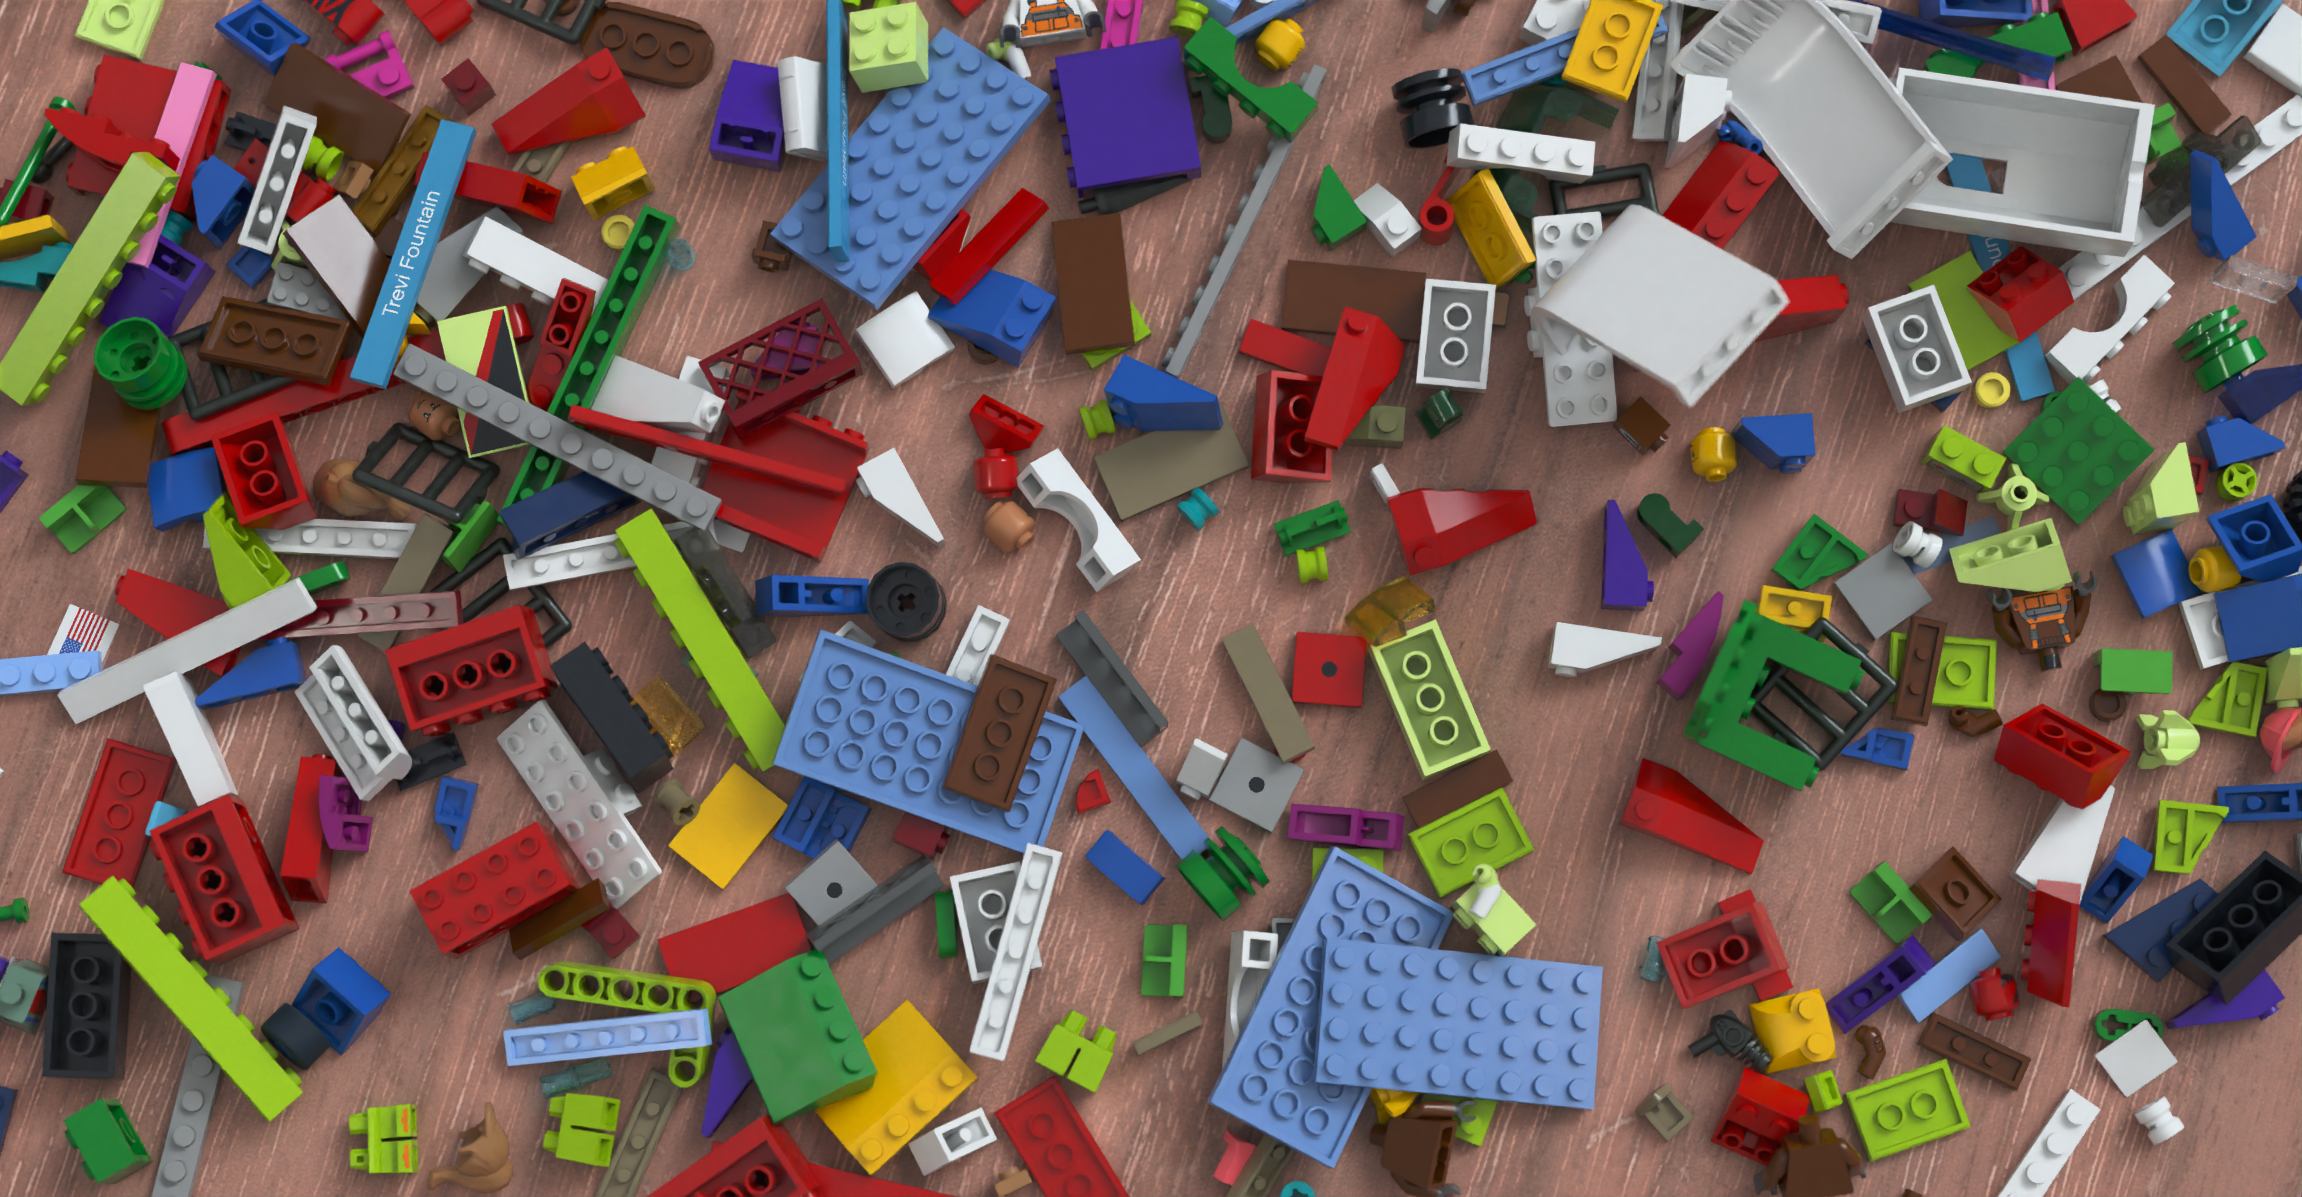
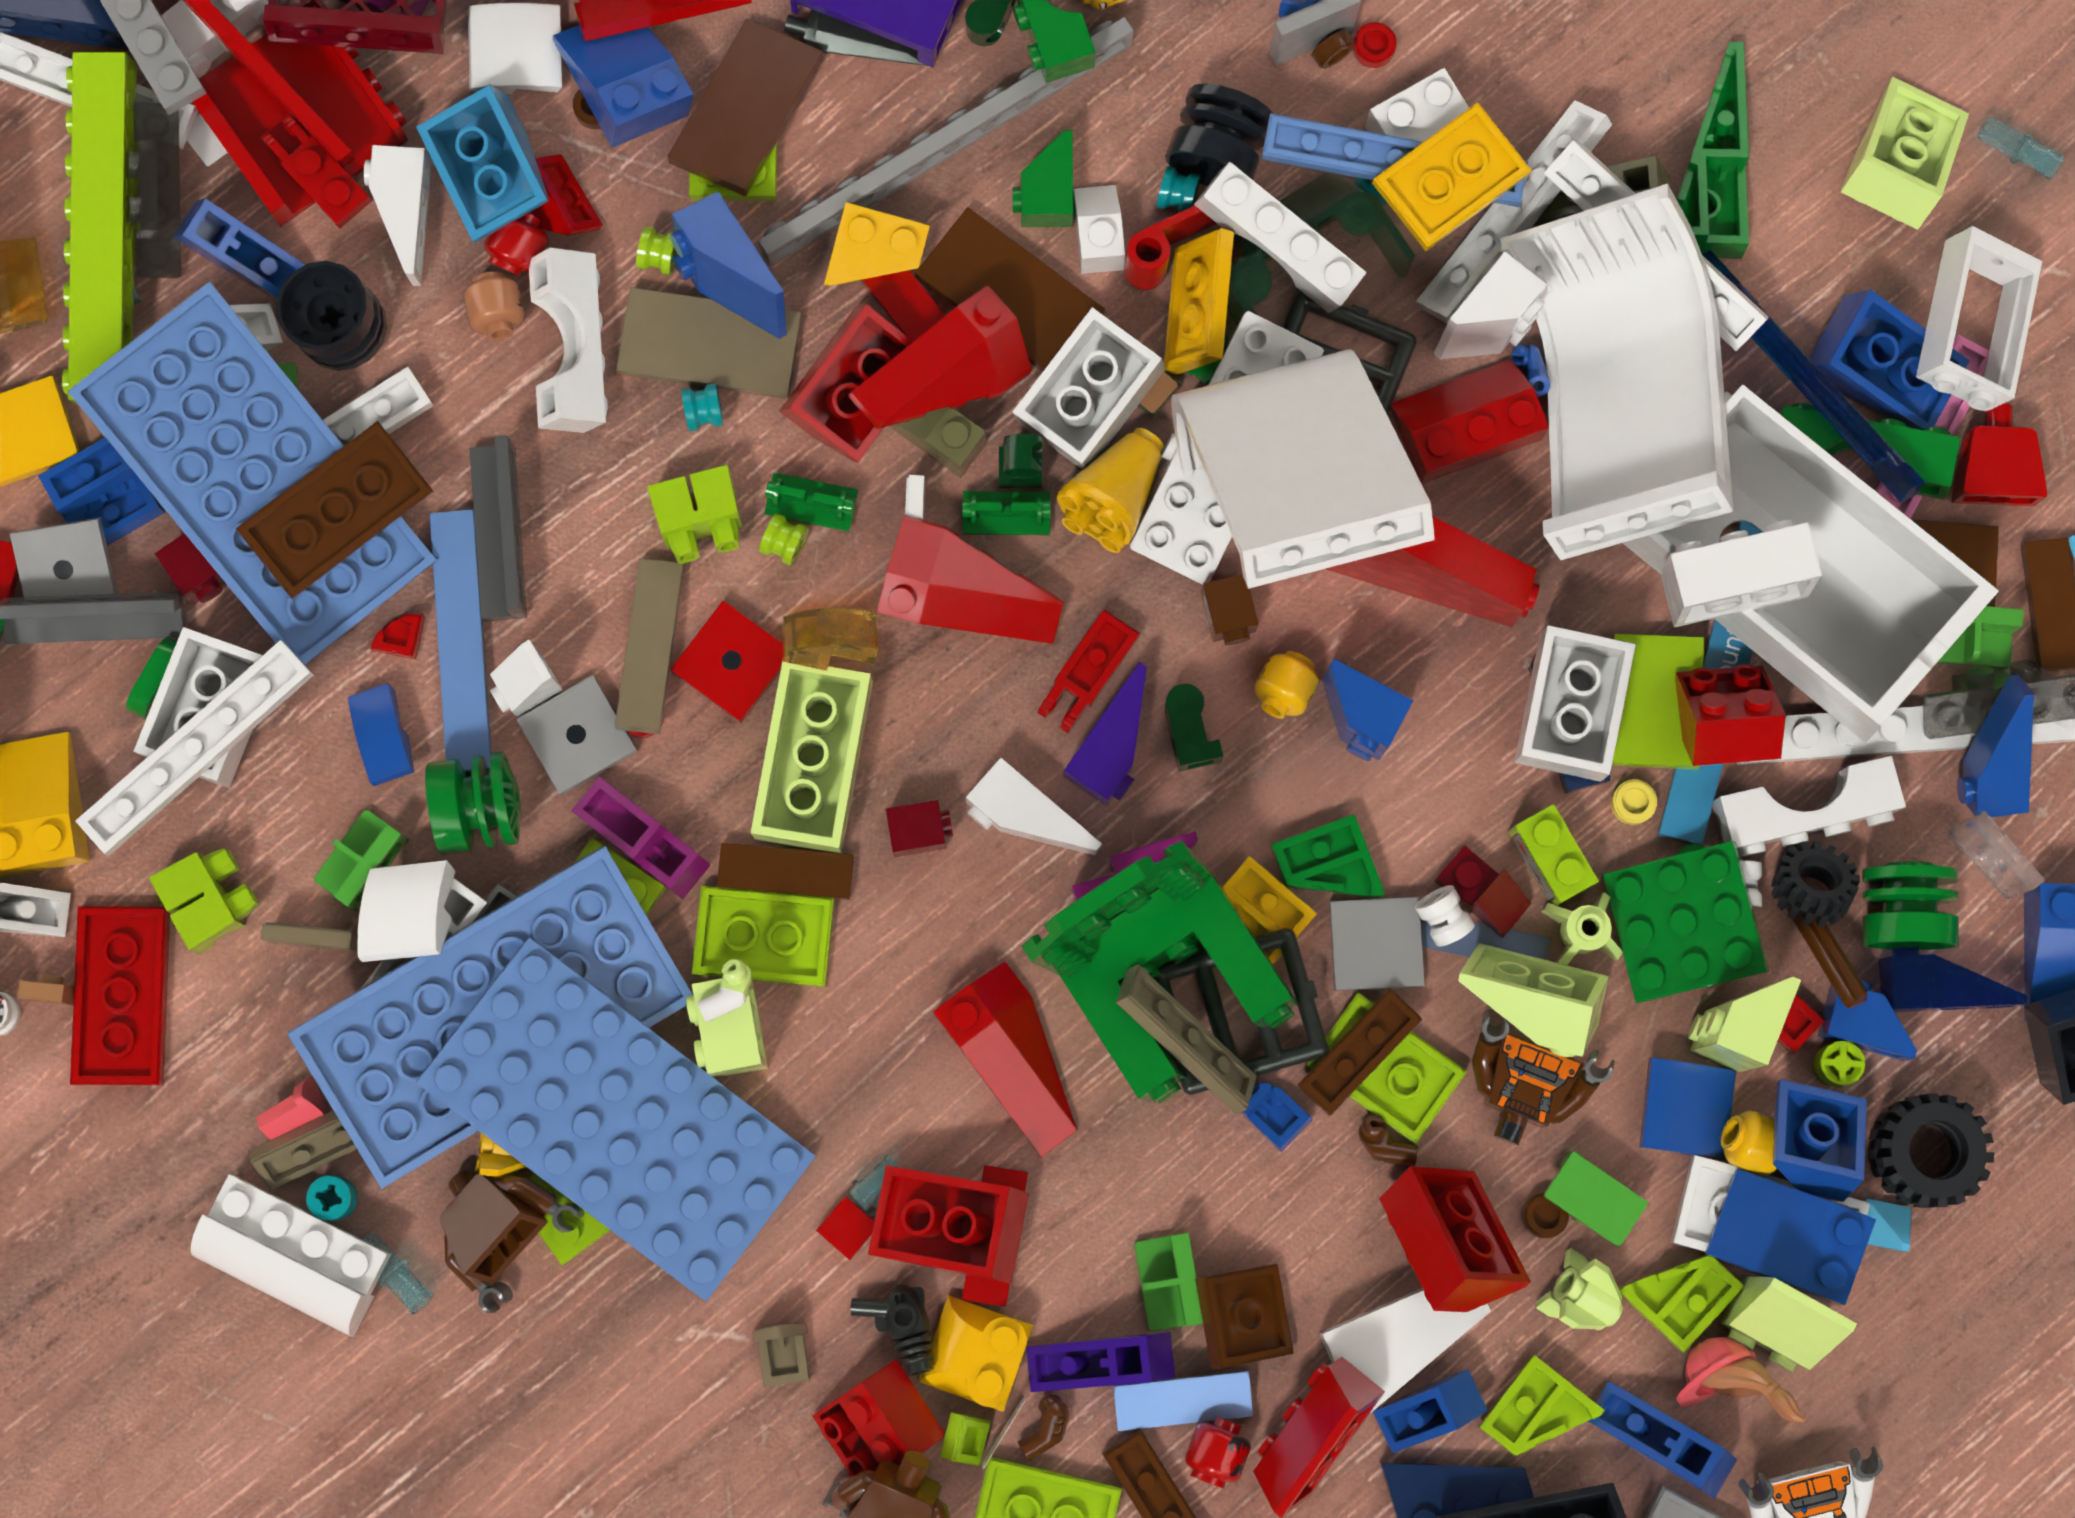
camera: 30 degrees right, 0 degrees up
(827, 510) = (319, 175): none -> red hinge
(945, 432) = (485, 161): none -> dark azure slope
(1229, 973) = (404, 911): none -> white slope
(1237, 597) = (715, 516): none -> lime hips
(1244, 326) = (874, 245): none -> yellow wing
(1424, 161) = (1177, 190): none -> teal wheel
(1449, 453) = (1006, 513): none -> green hinge
(1514, 394) = (1112, 490): none -> yellow cone
(1529, 704) = (918, 828): none -> dark red brick
(1574, 523) = (1090, 666): none -> red hinge
(1654, 1001) = (847, 1228): none -> red tile
(1805, 732) = (1186, 1039): none -> dark tan tile
(1846, 1069) = (1003, 1431): none -> white sticker
(1981, 197) = (1740, 573): none -> white brick
(2147, 356) = (1810, 902): none -> black tyre
(2183, 411) = (1833, 962): none -> reddish brown axle

